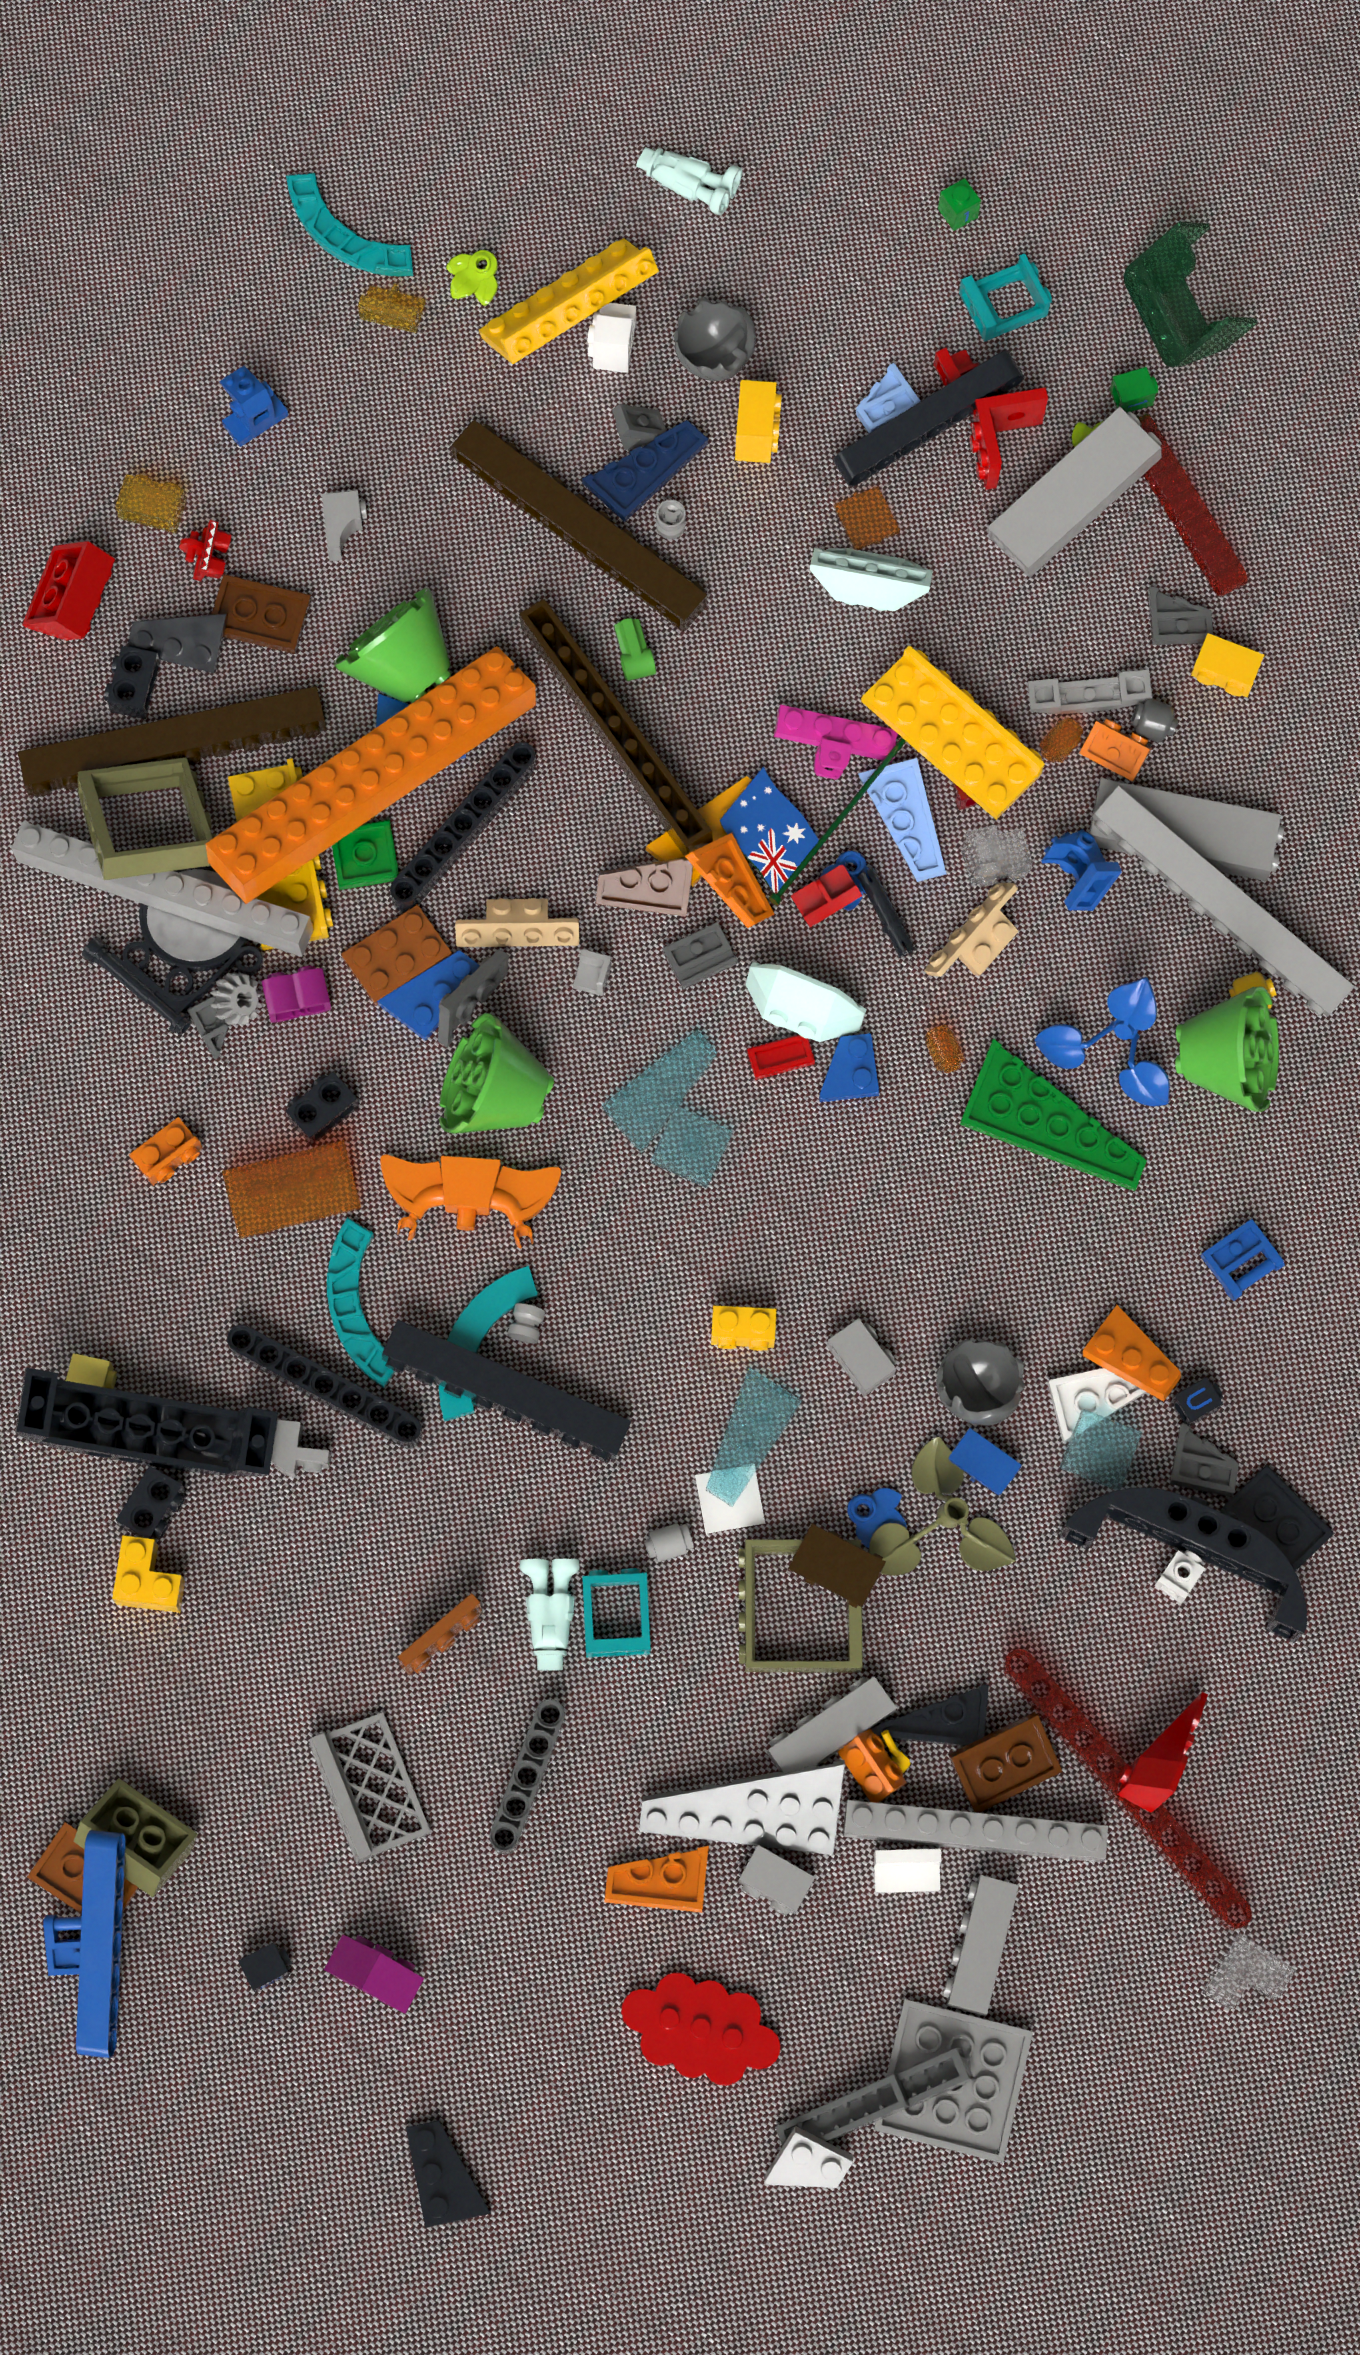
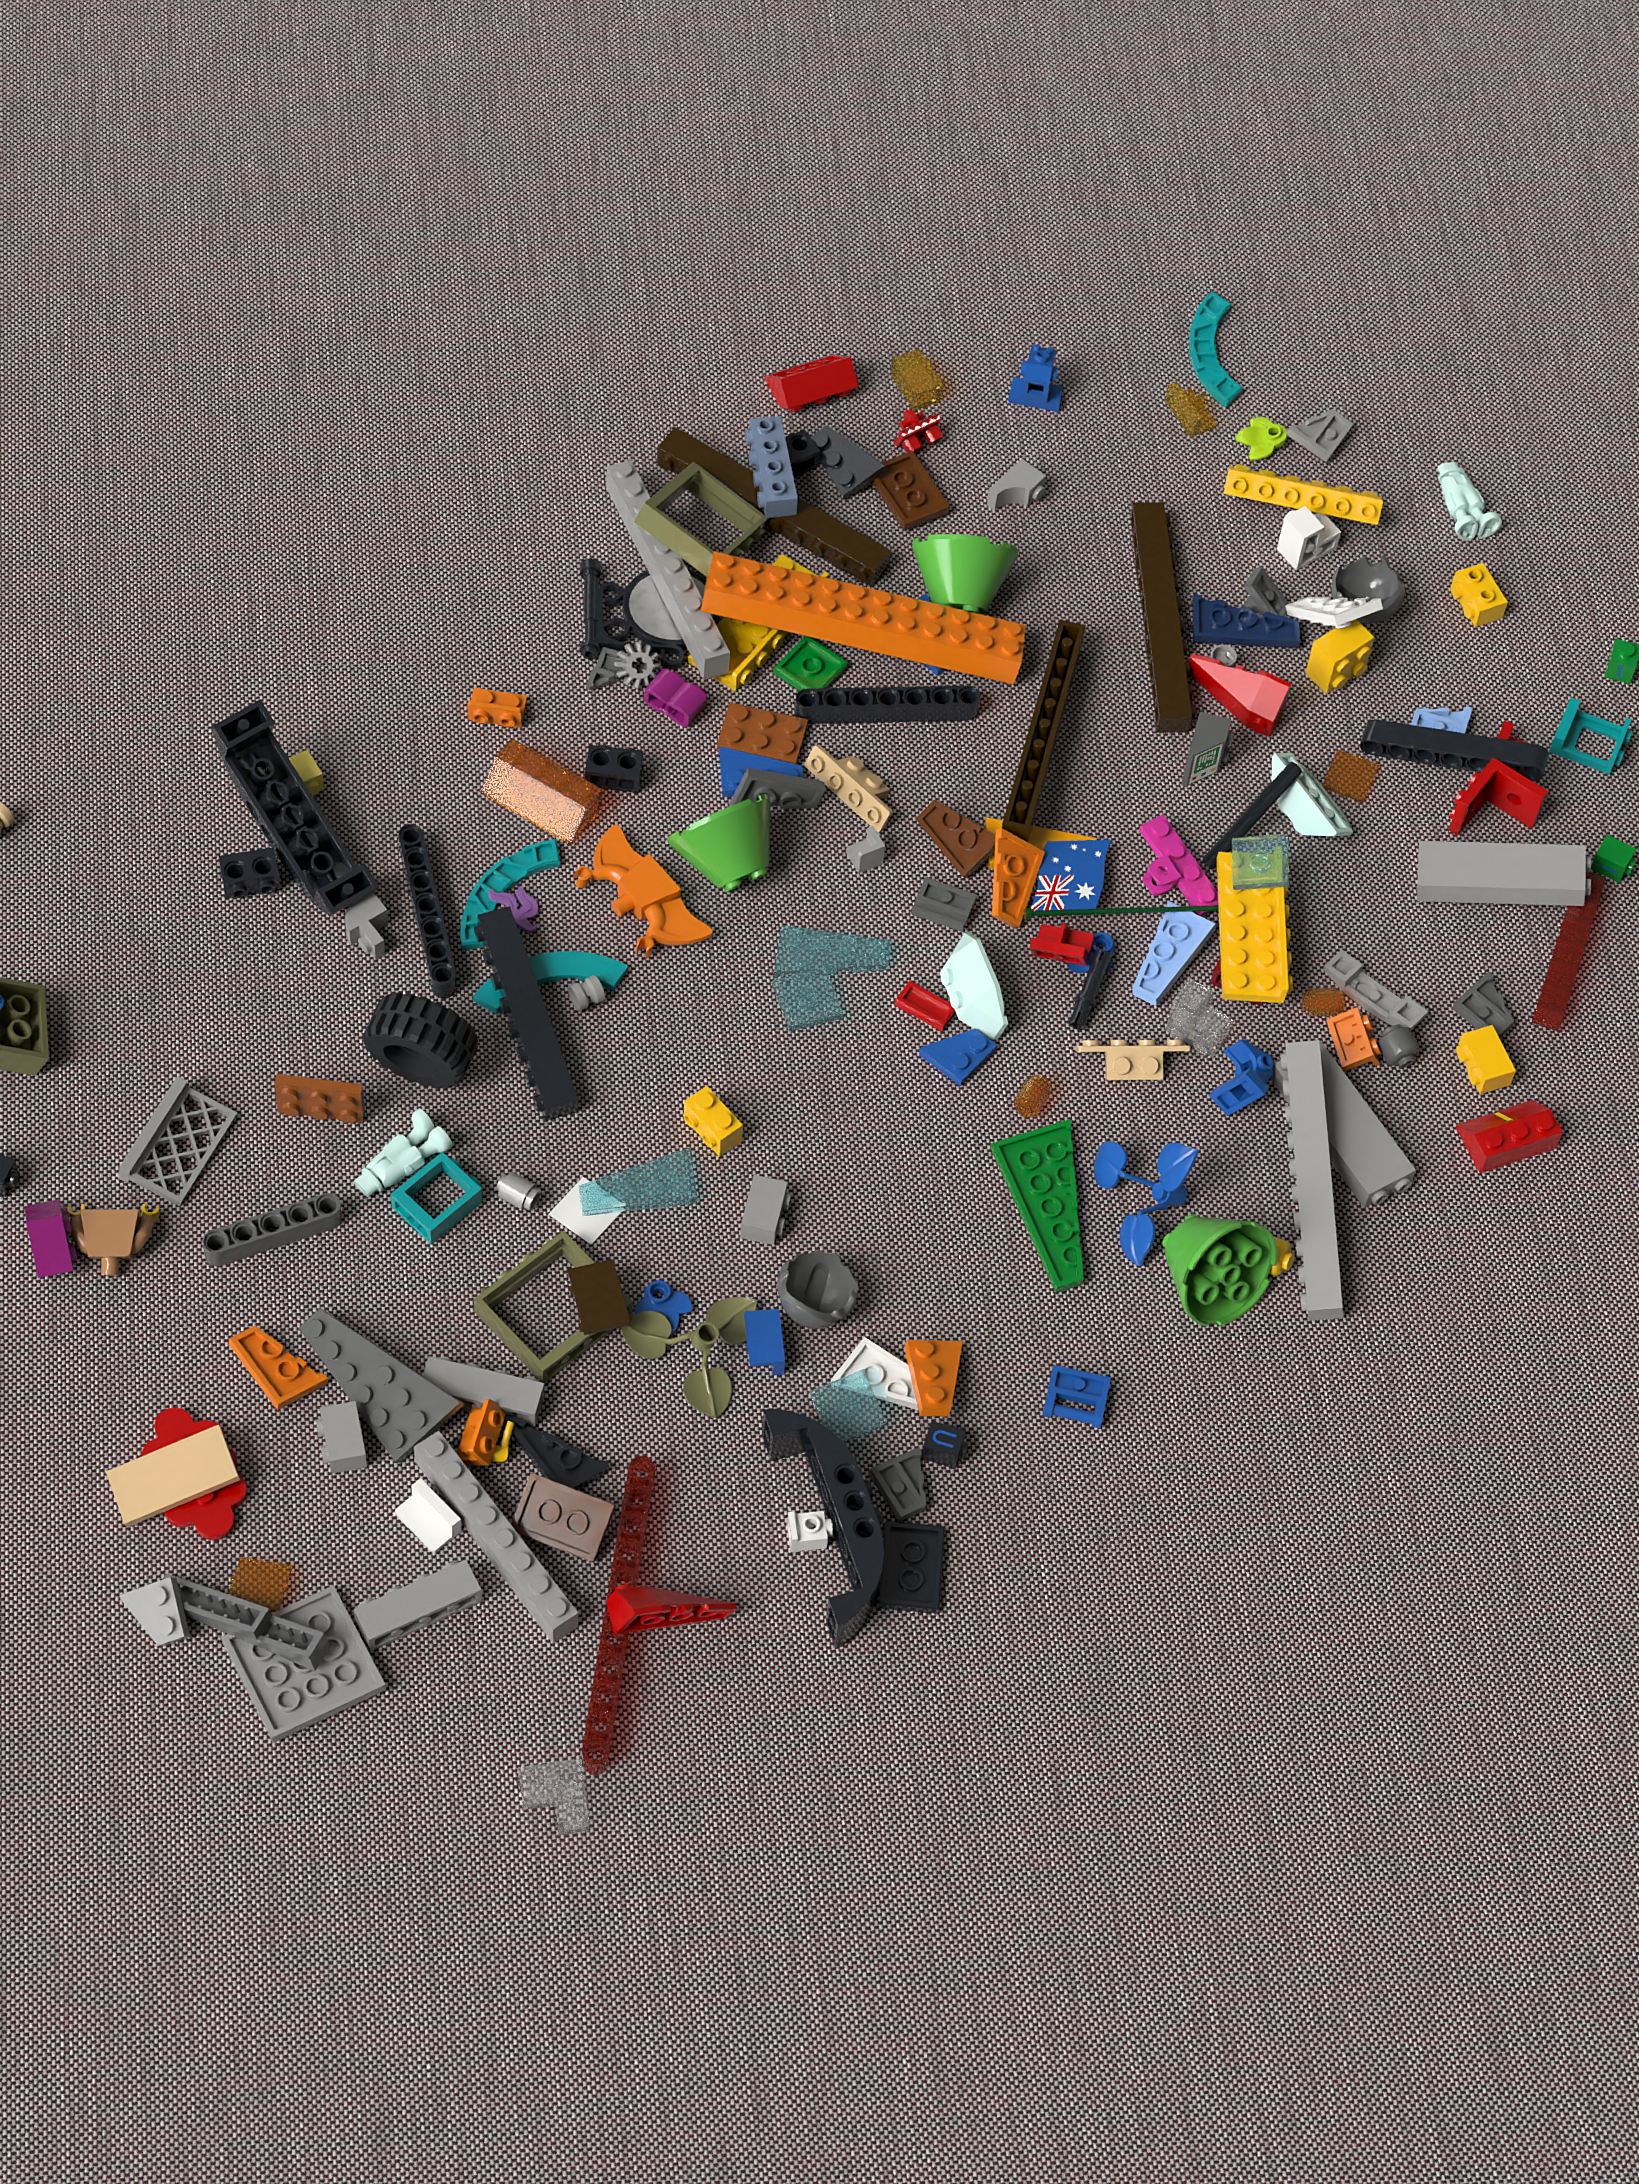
camera: 45 degrees right, 15 degrees down
(138, 1583) = (192, 904): yellow brick -> none
(143, 709) = (772, 467): none -> sand blue brick
(397, 1302) = (525, 913): none -> medium lavender piece
(415, 1917) = (111, 1234): none -> medium nougat torso
(469, 1507) = (420, 1040): none -> black tyre
(518, 225) = (1321, 433): none -> light grey wing
(635, 656) = (1108, 713): bright green piece -> none
(695, 2051) = (172, 1475): none -> tan tile
(716, 390) = (1332, 612): none -> white wing
(731, 531) = (1251, 697): none -> wedge
(745, 610) = (1208, 747): none -> dark grey slope
(792, 254) = (1478, 595): none -> yellow brick
(846, 635) = (1253, 812): none -> black axle
(850, 2058) = (260, 1582): none -> clear orange piece
(909, 675) = (1260, 862): none -> clear light blue plate
(1303, 709) = (1510, 1135): none -> red slope

